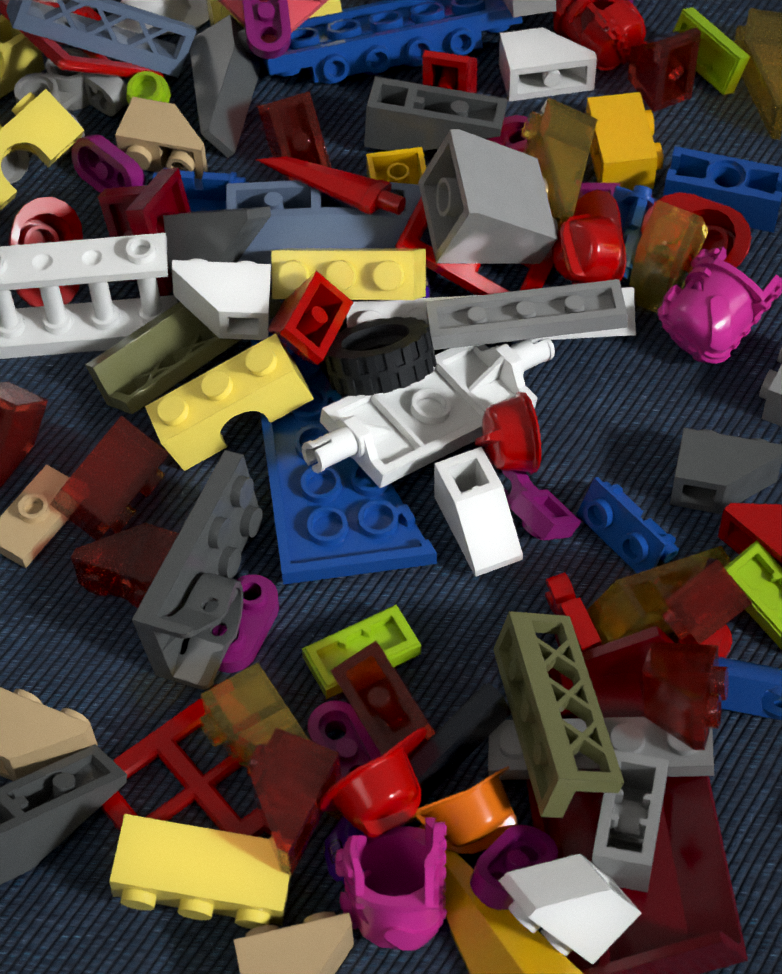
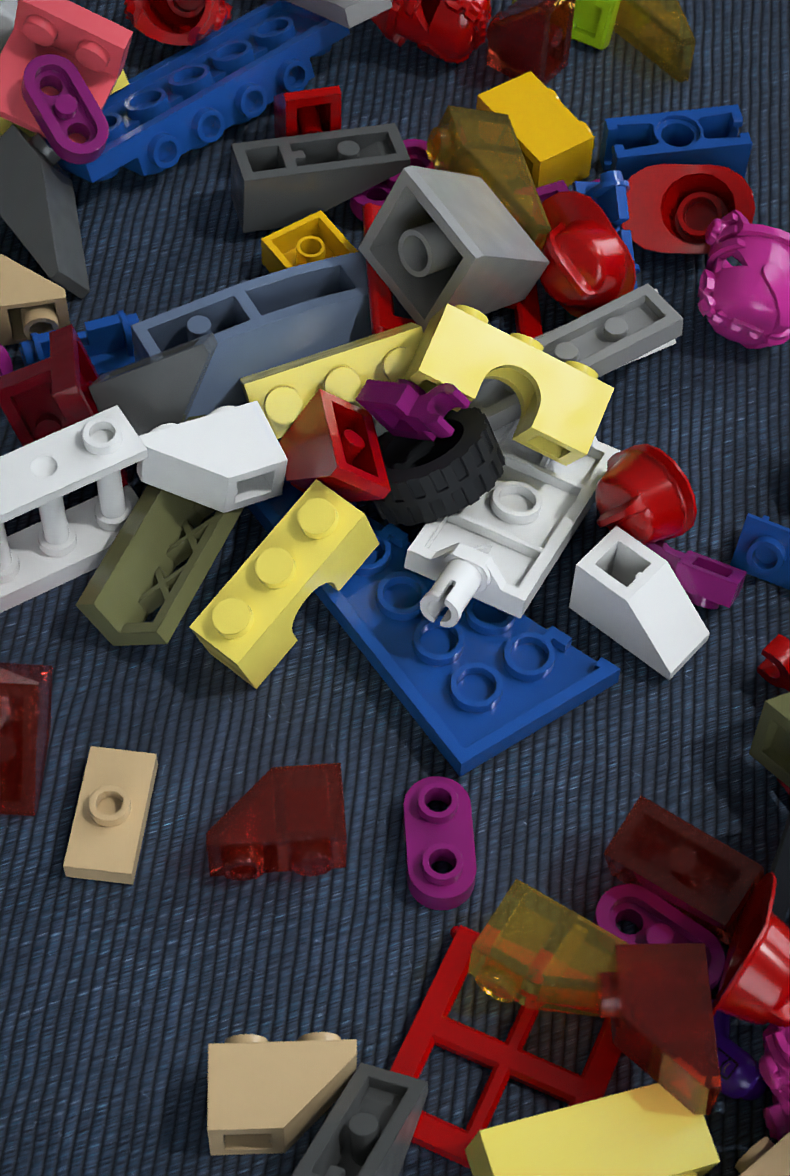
camera: 30 degrees left, 0 degrees up
(110, 478) = (190, 733): clear red brick -> none
(195, 581) = (396, 839): dark grey plate -> none
(294, 129) = (162, 247): clear red slope -> none
(353, 189) = (281, 281): red bar -> none
(375, 306) = (409, 410): none -> magenta plate
(386, 628) = (594, 816): lime plate -> none
(428, 280) = (556, 398): none -> light yellow arch
(544, 64) = (395, 74): white slope -> none
(665, 253) = (673, 240): clear yellow slope -> none

